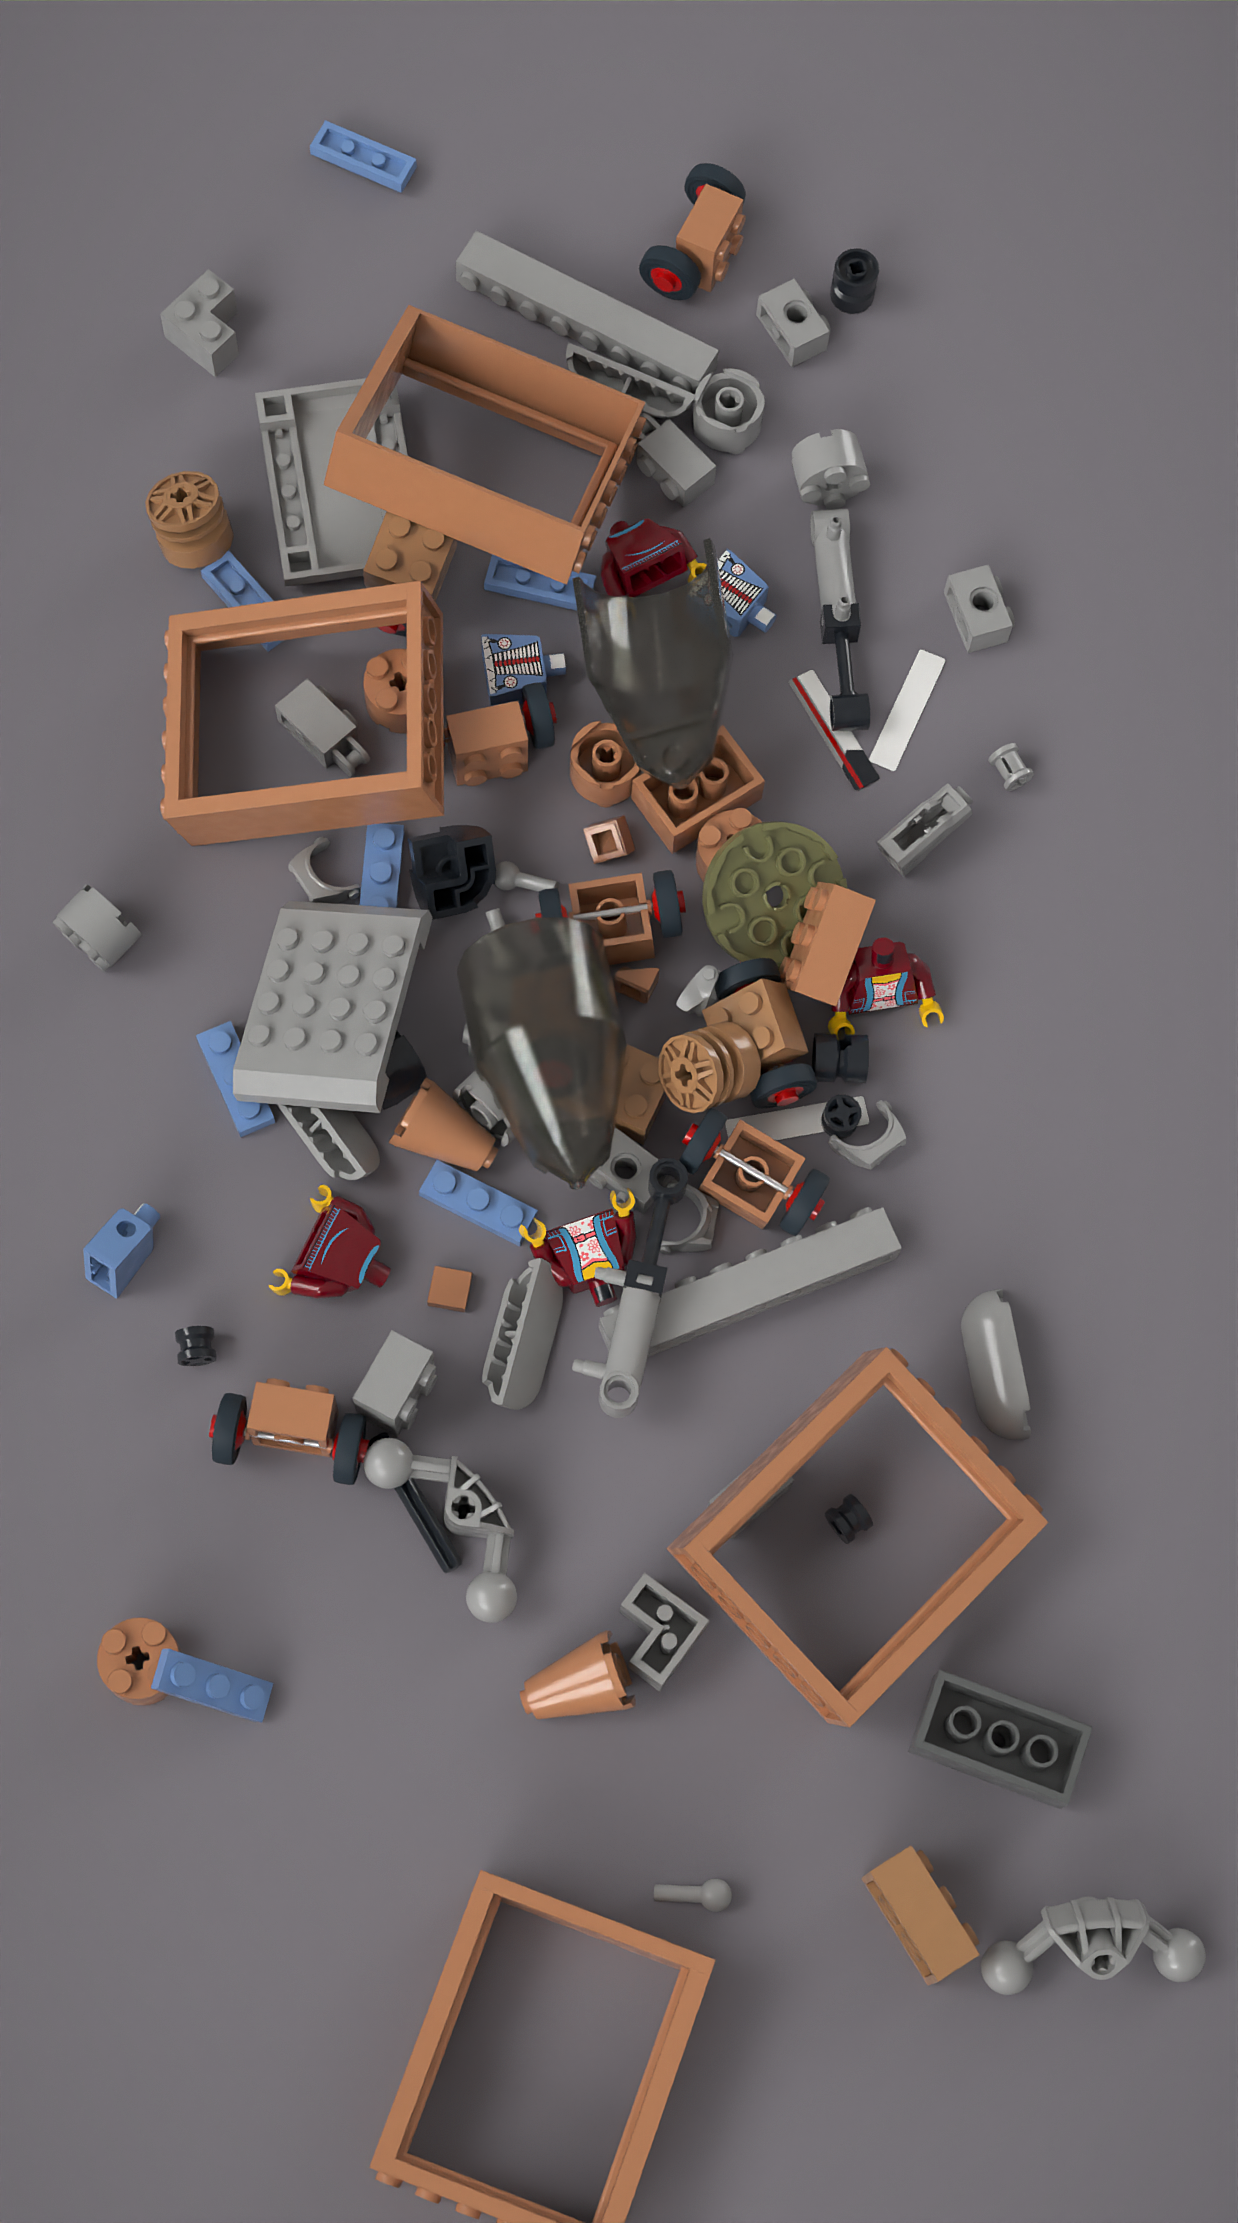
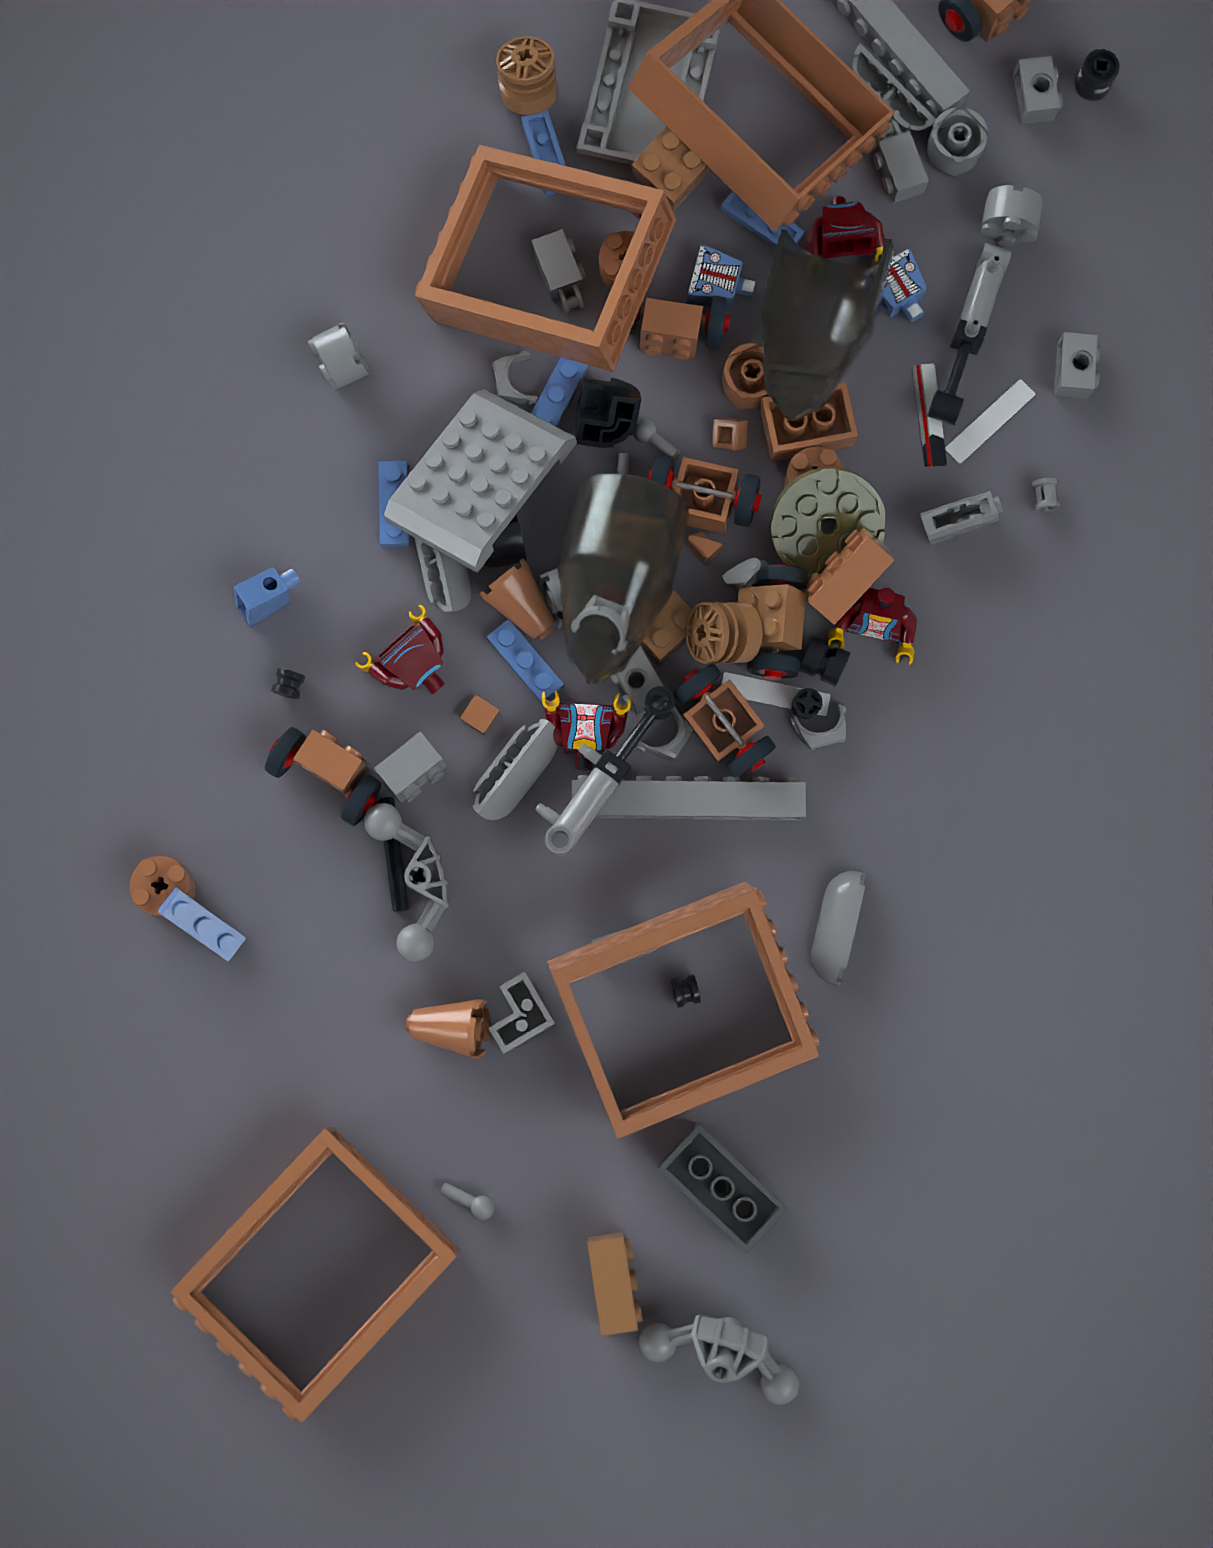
camera: 25 degrees right, 10 degrees up
(560, 1083) = (618, 614): none -> light grey helmet

